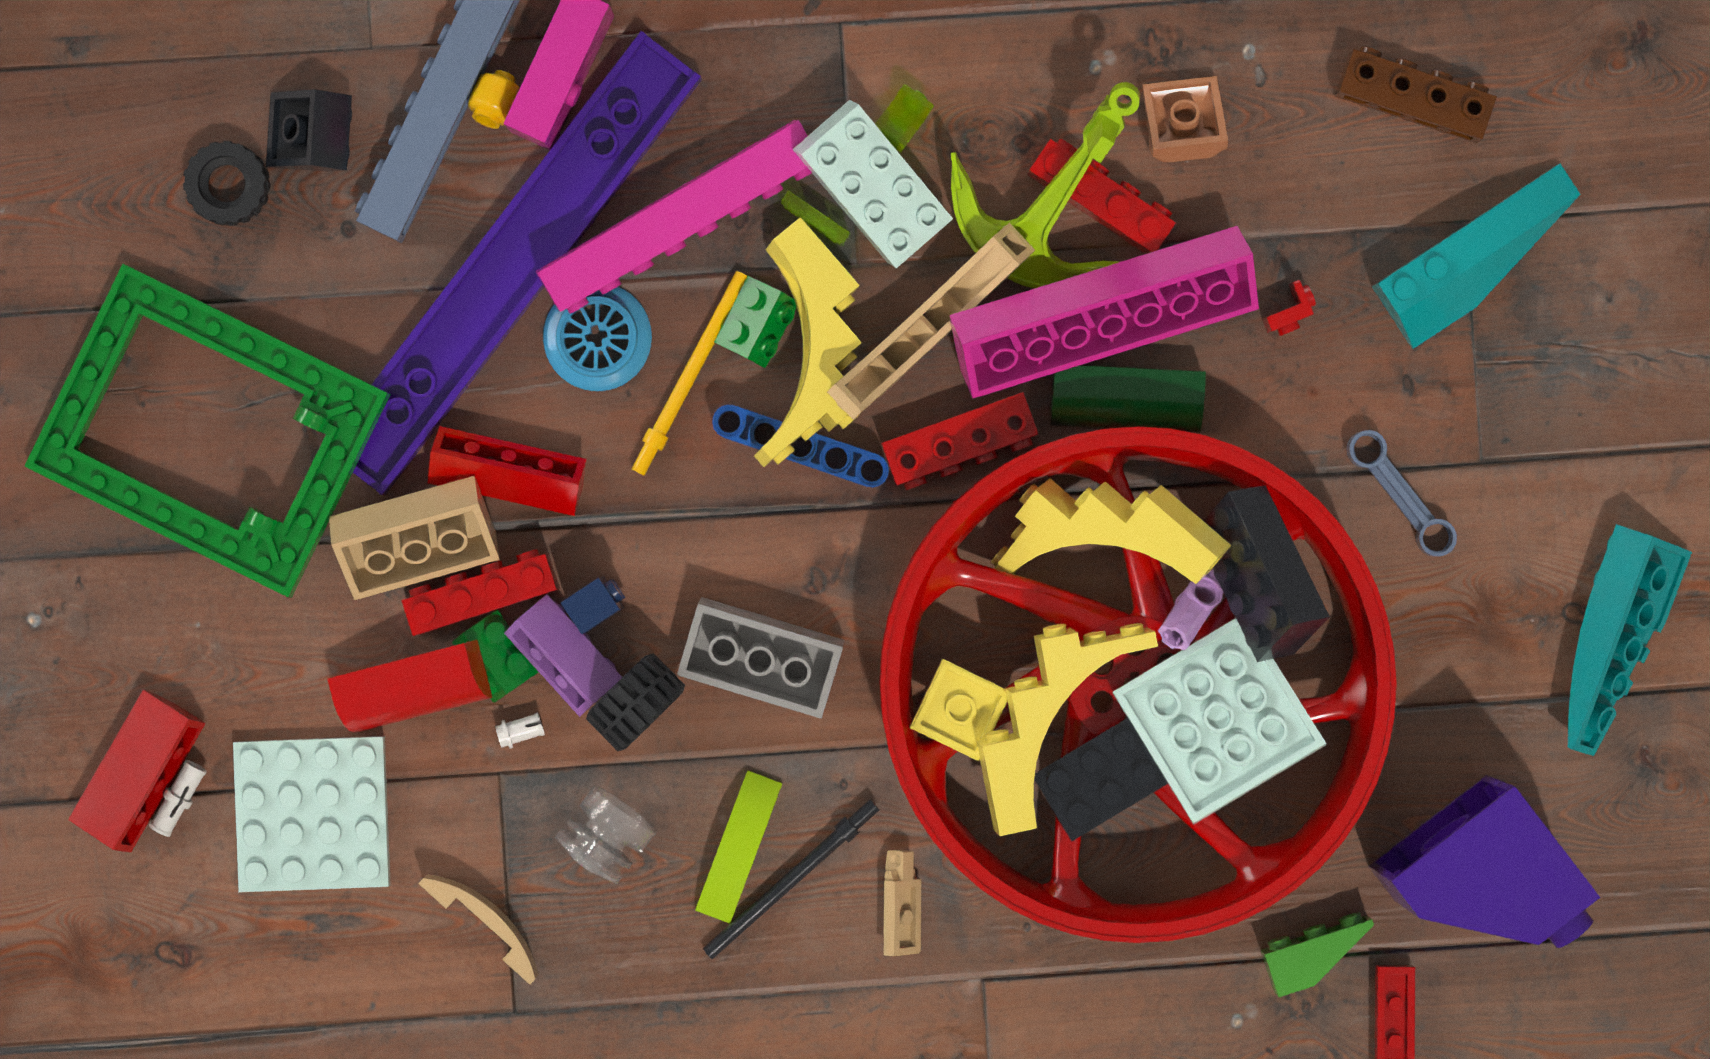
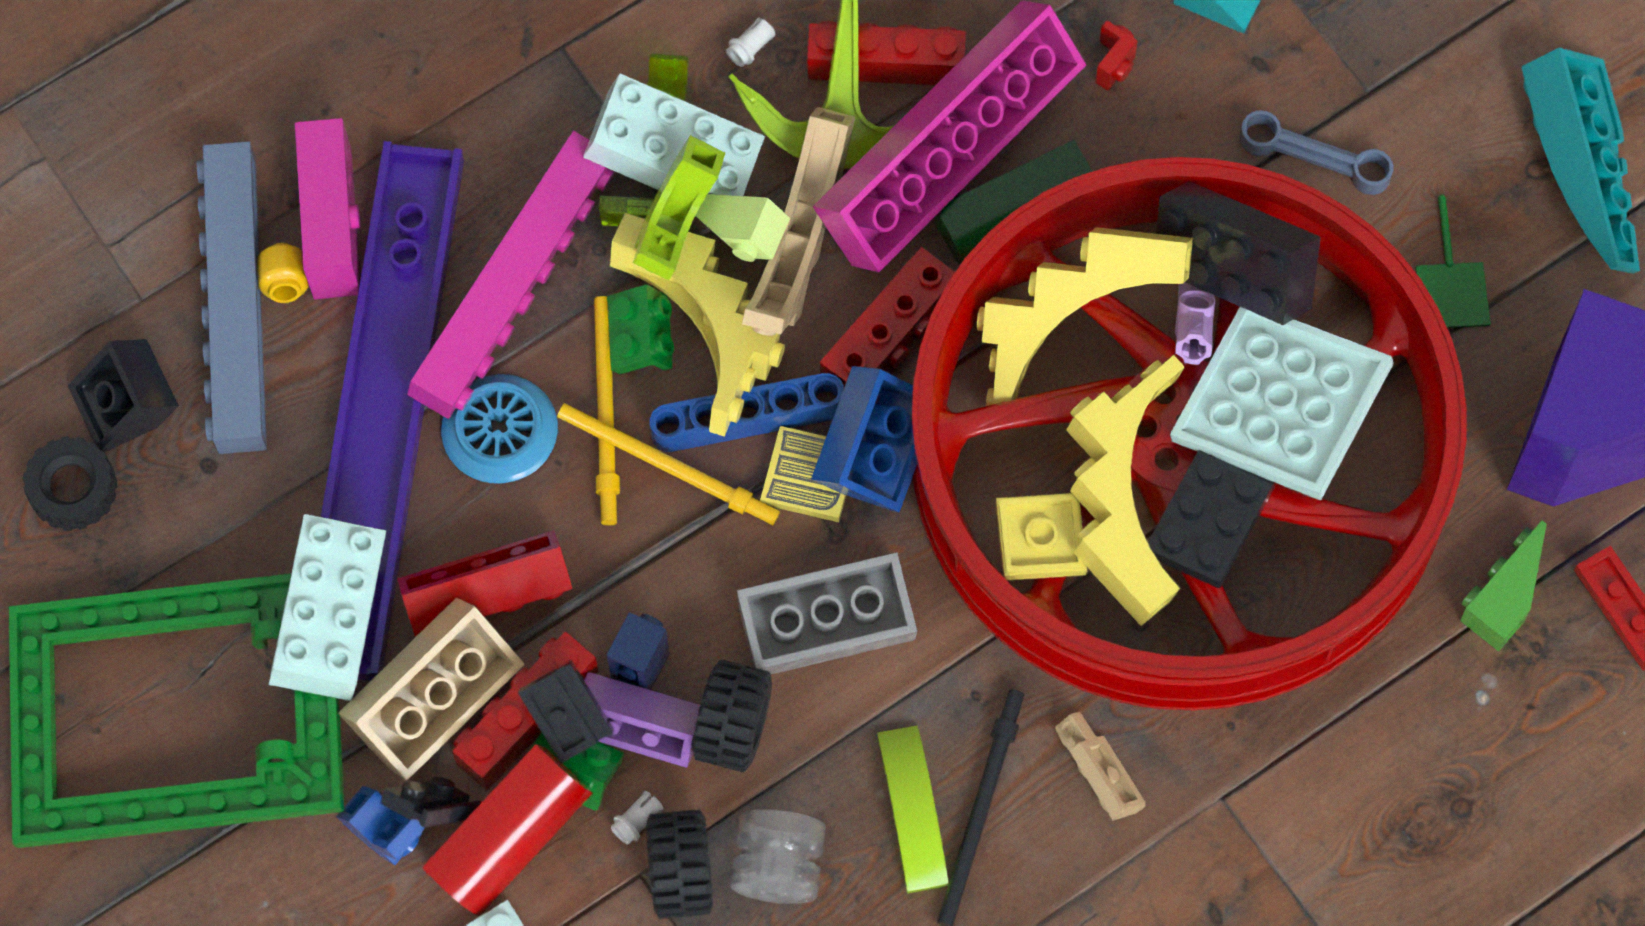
camera: 30 degrees left, 20 degrees down
(317, 623) = (379, 826): none -> blue brick
(362, 632) = (431, 801): none -> black plate
(363, 432) = (327, 607): none -> light aqua brick
(504, 626) = (566, 711): none -> black plate
(525, 797) = (679, 864): none -> black tyre
(752, 514) = (738, 499): none -> yellow bar
(821, 525) = (790, 474): none -> tile
(831, 250) = (676, 206): none -> lime arch
(879, 537) = (870, 440): none -> blue slope
(881, 290) = (745, 223): none -> yellowish green slope
(996, 116) = (744, 48): none -> white pin
(1434, 676) = (1456, 287): none -> green piece

